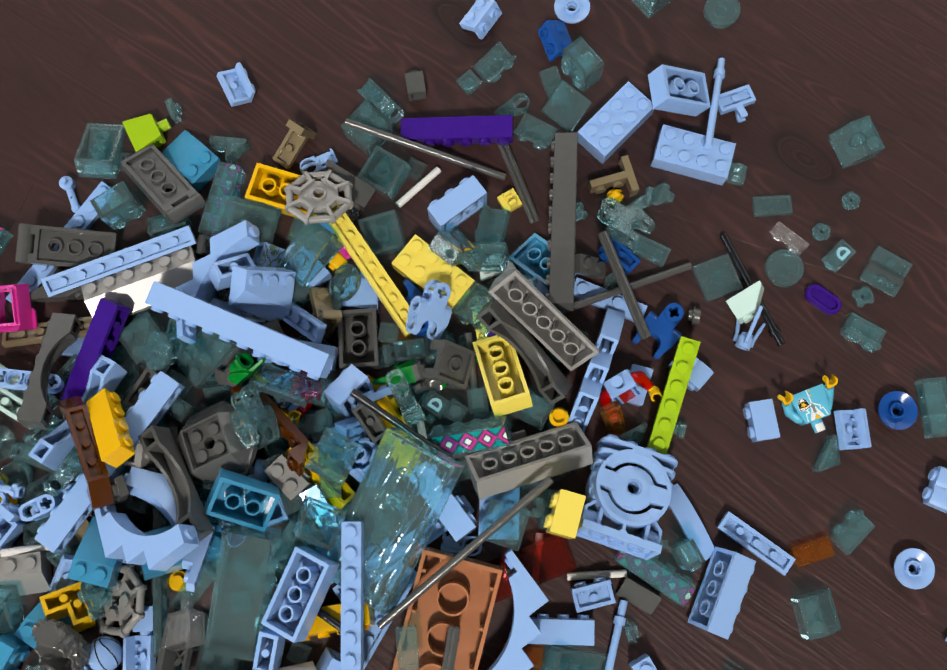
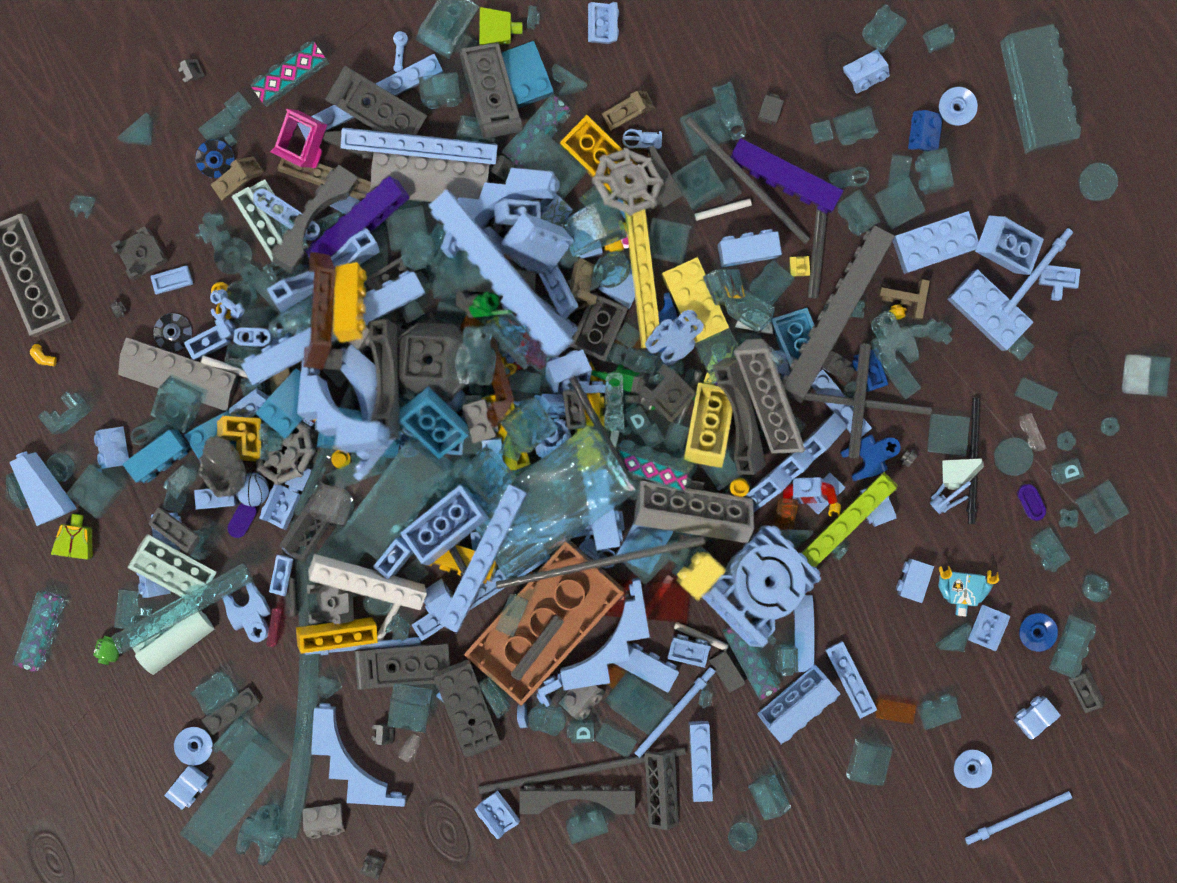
camera: 30 degrees right, 10 degrees up
(924, 345) = (1095, 588): none -> clear light blue hair

